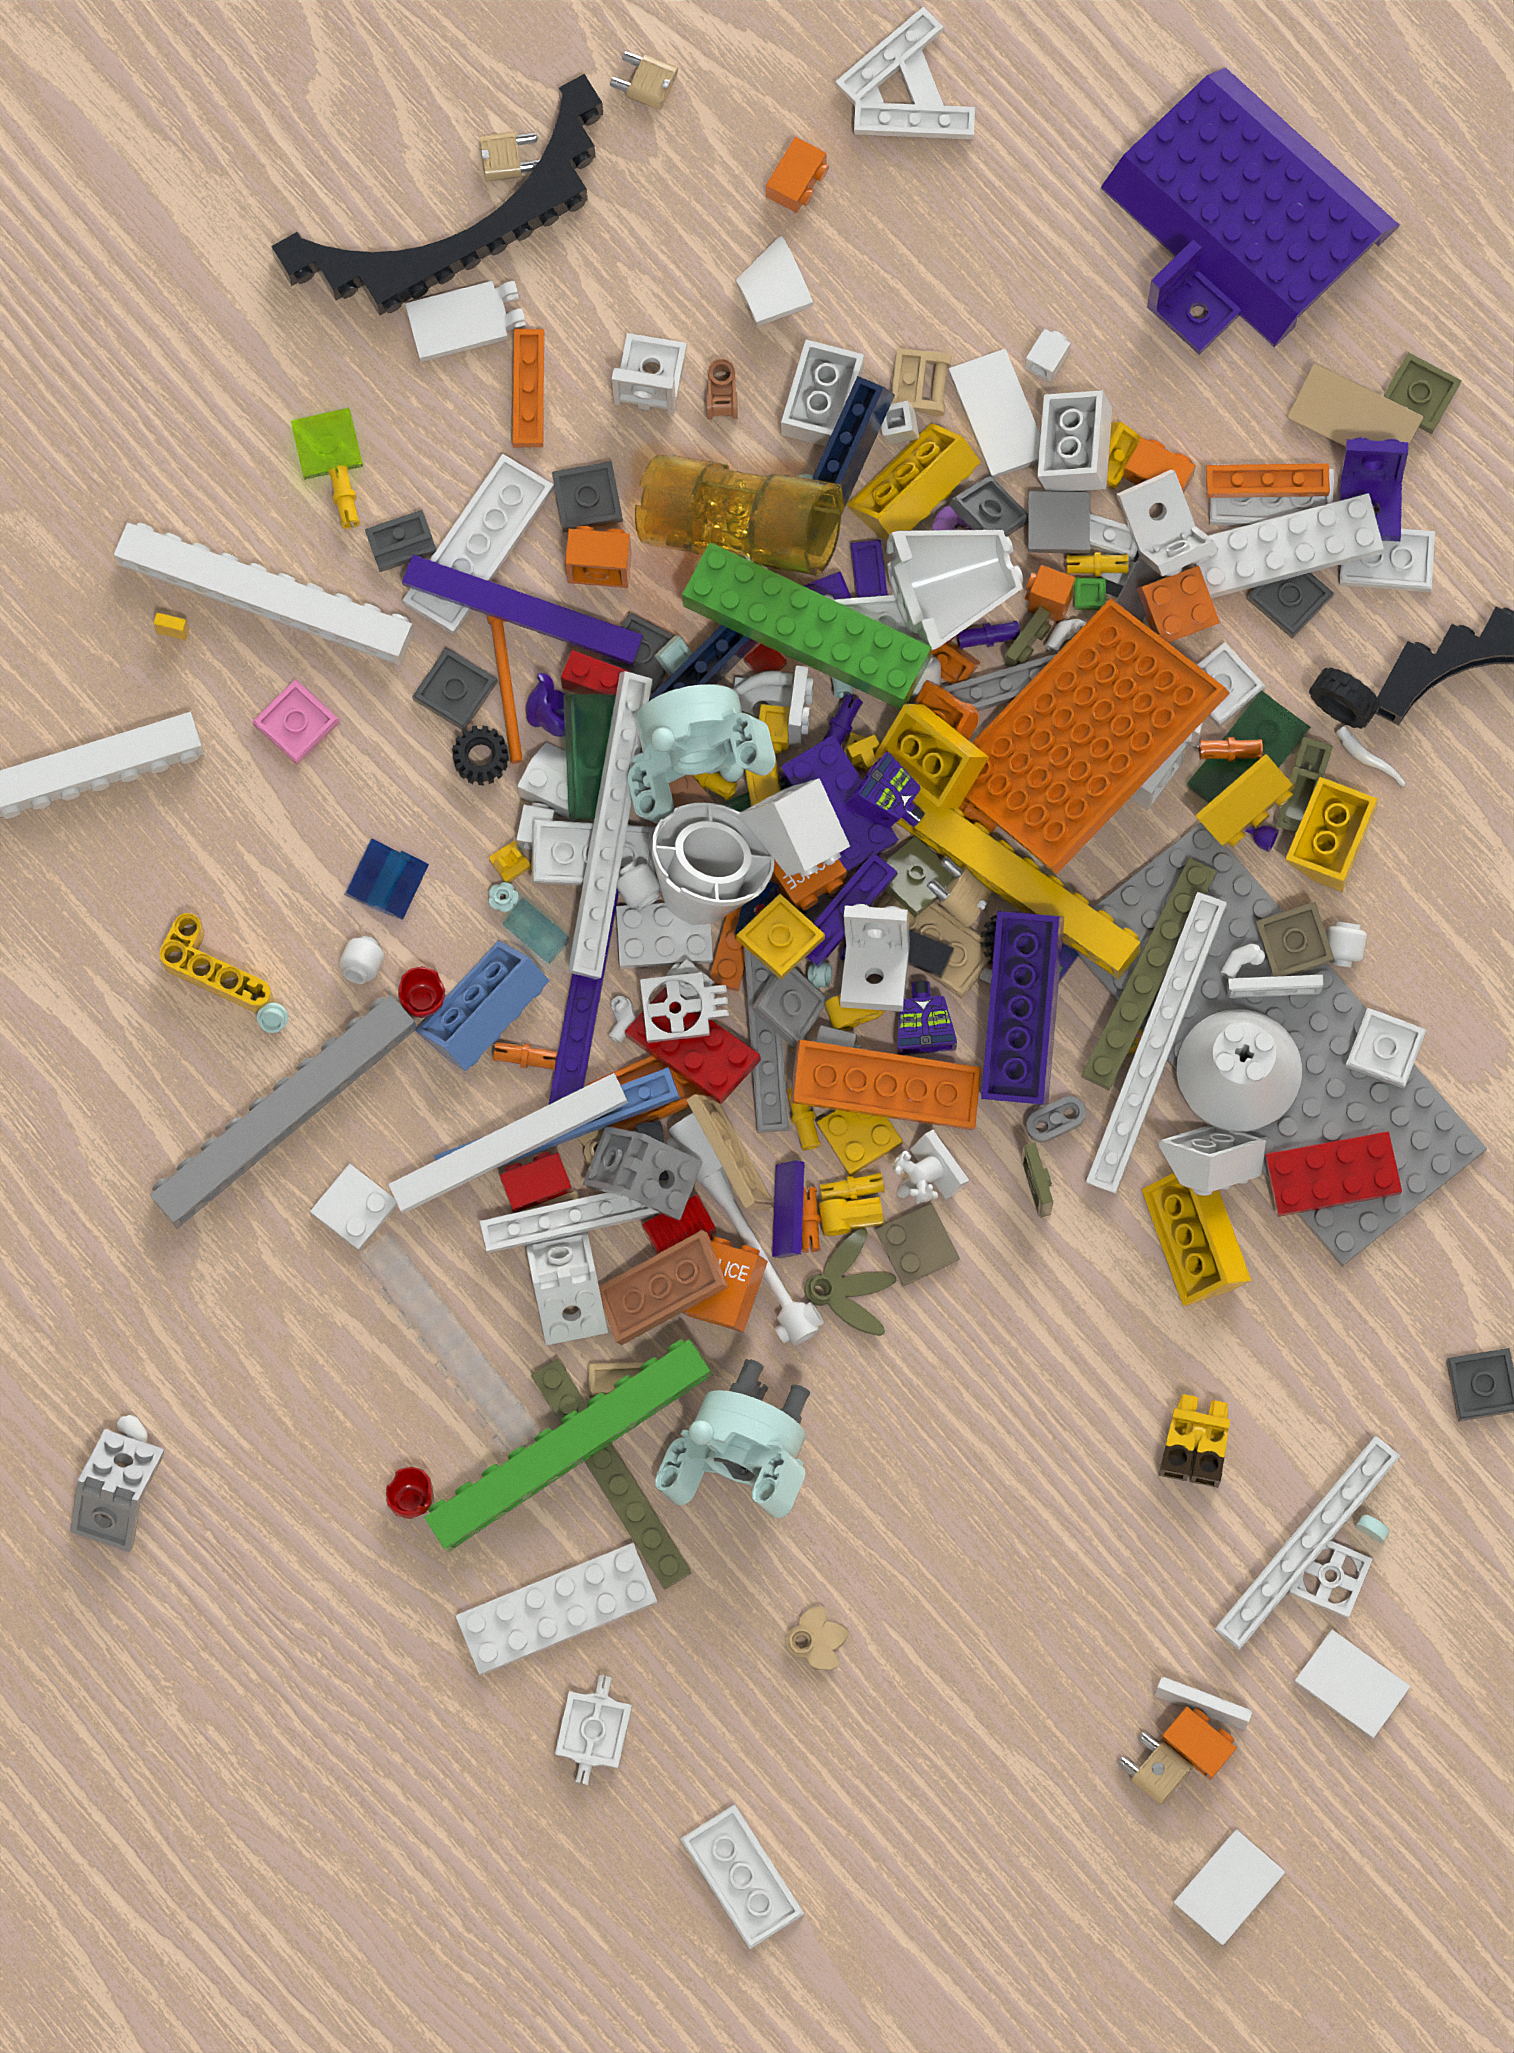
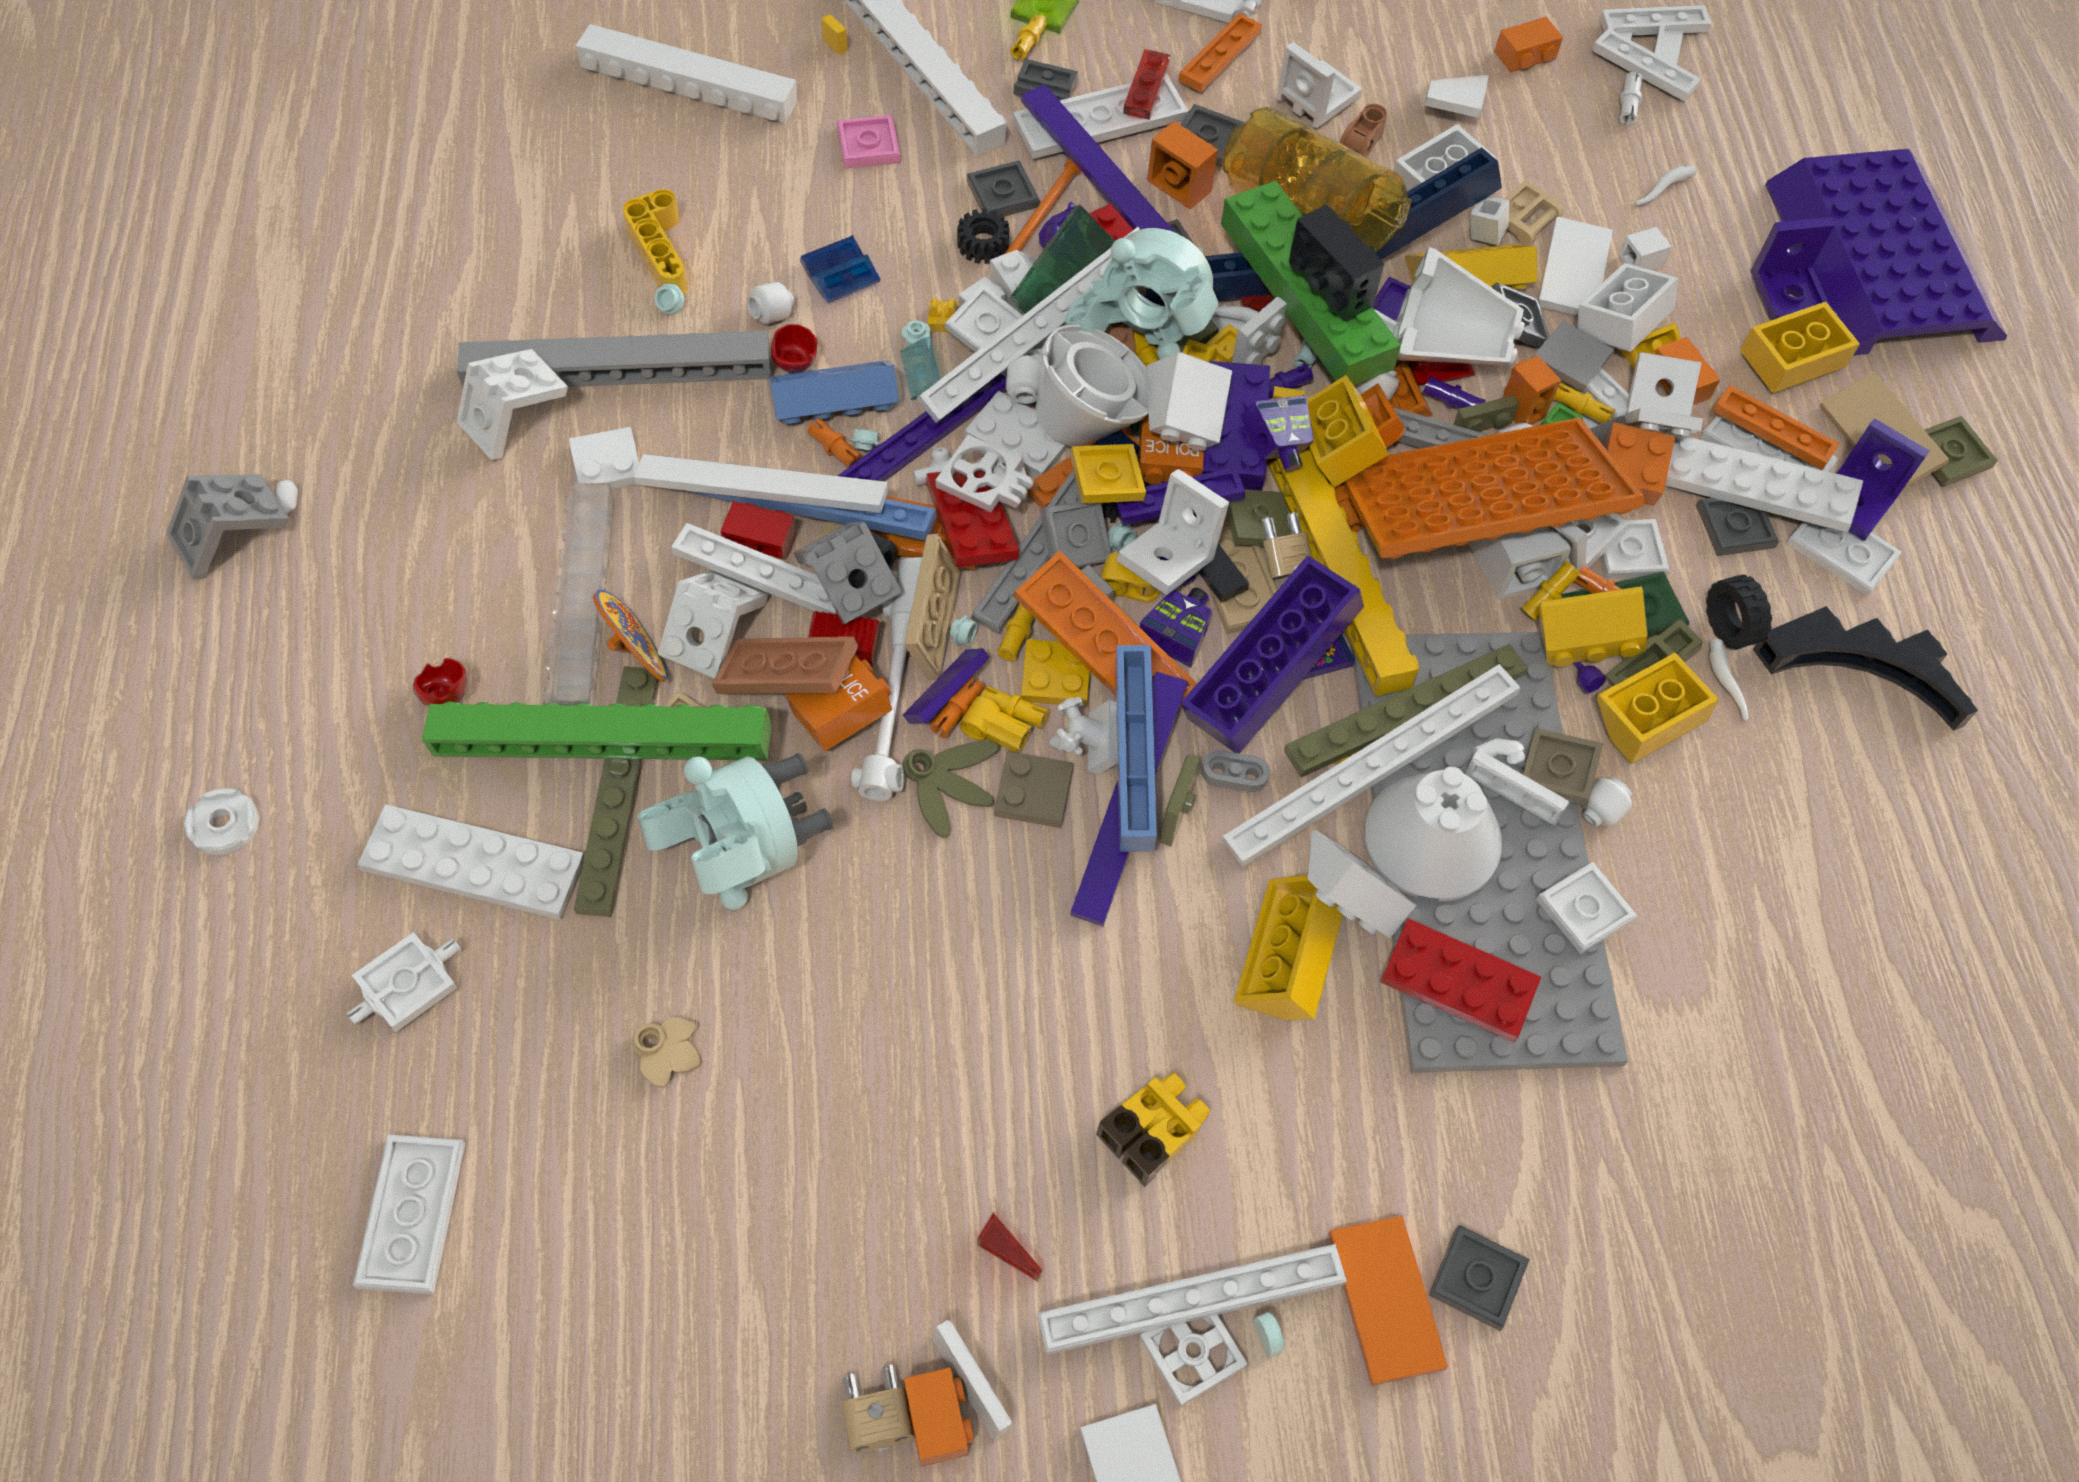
camera: 30 degrees right, 15 degrees down
(235, 1225) = (499, 386): none -> white bracket
(345, 1736) = (225, 839): none -> white tile
(497, 482) = (1147, 84): none -> clear red plate
(517, 1346) = (629, 633): none -> shield
(546, 1033) = (864, 439): none -> light aqua plate
(763, 1150) = (963, 631): none -> light aqua plate
(834, 617) = (1335, 262): none -> black piece
(926, 174) = (1630, 98): none -> white pin
(979, 1166) = (1135, 749): none -> medium blue brick
(996, 1200) = (1106, 861): none -> dark purple tile
(1017, 243) = (1672, 176): none -> white animal
(1154, 1599) = (1002, 1244): none -> clear red piece
(1188, 781) = (1551, 589): none -> yellow pin
(1238, 376) = (1799, 347): none -> yellow brick
(1434, 1446) = (1388, 1301): none -> orange tile

